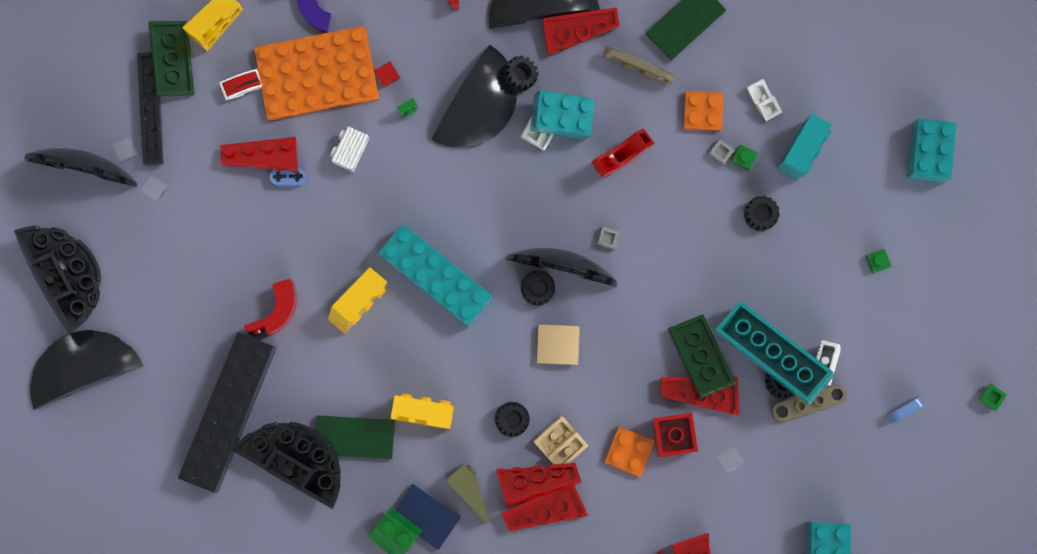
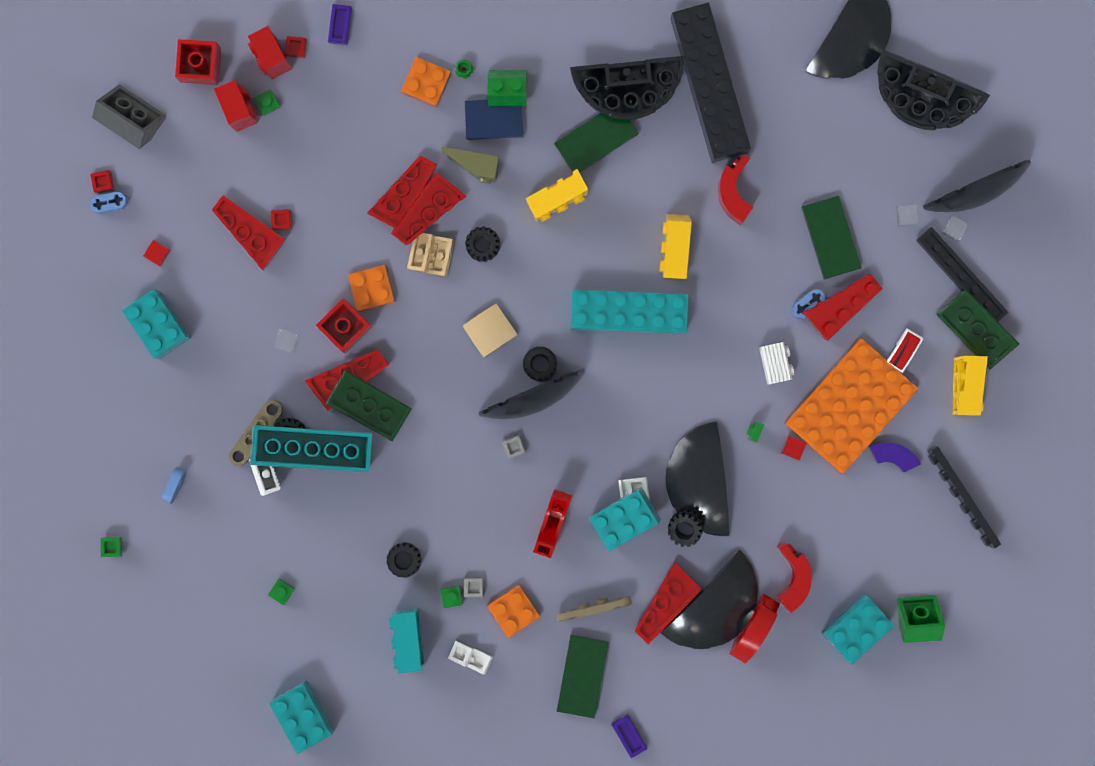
camera: 145 degrees right, 5 degrees up
(228, 215) = (831, 237): none -> dark green tile

